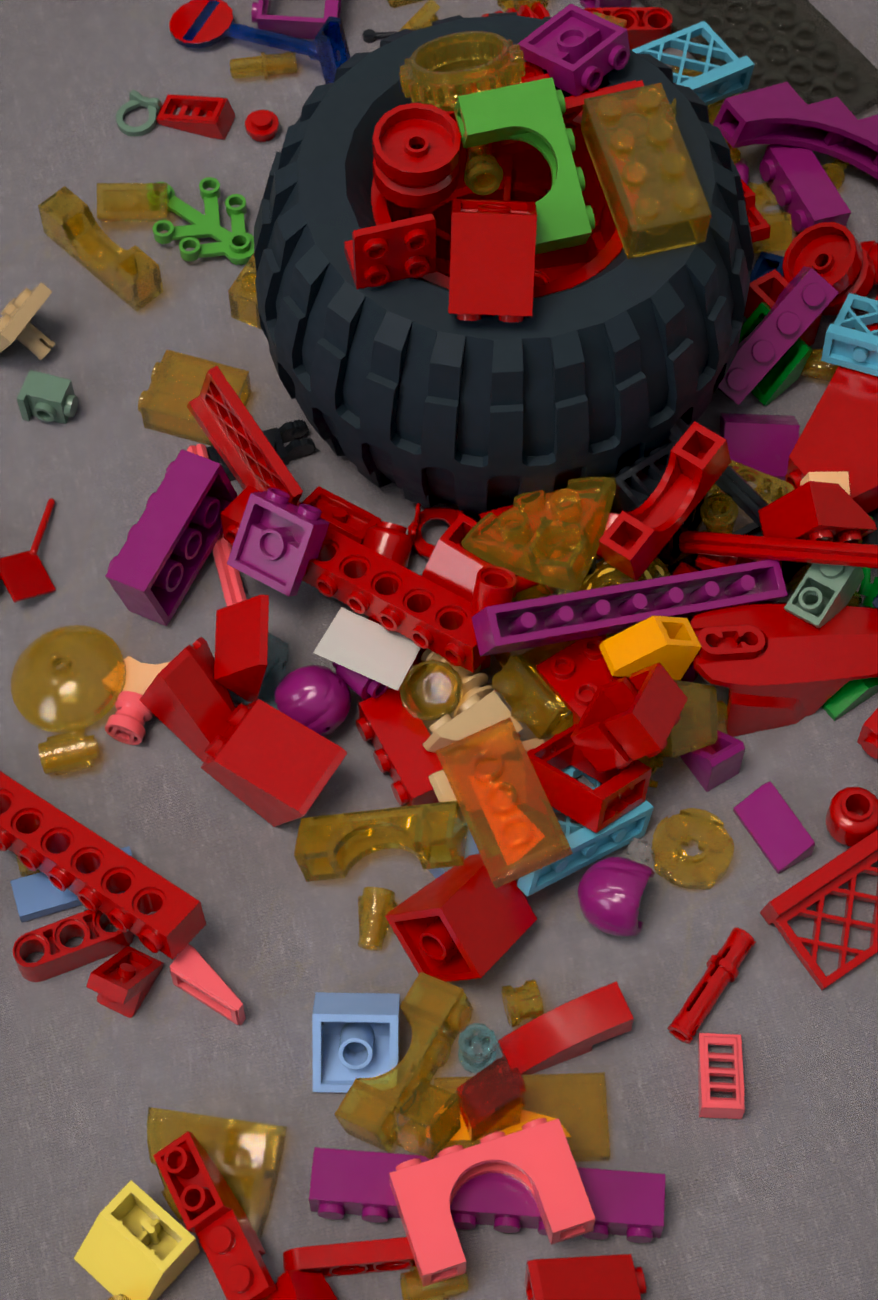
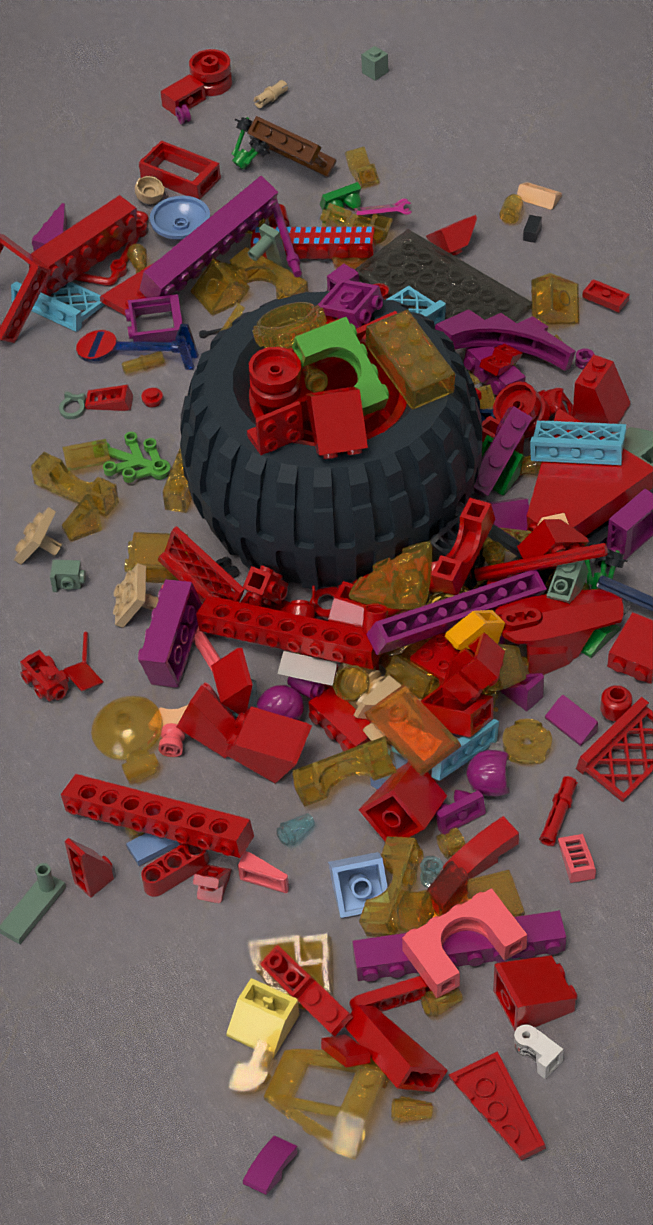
camera: 10 degrees left, 10 degrees down
(97, 311) = (83, 520): none -> clear yellow slope
(133, 457) = (131, 596): none -> tan plate
(277, 540) = (237, 619): magenta plate -> none
(280, 918) = (294, 829): none -> clear light blue cone
(341, 489) = (265, 586): none -> red brick
(372, 909) = (350, 816): clear yellow cone -> none
(563, 947) = (464, 809): none -> magenta tile
(818, 177) = (501, 359): none -> red slope

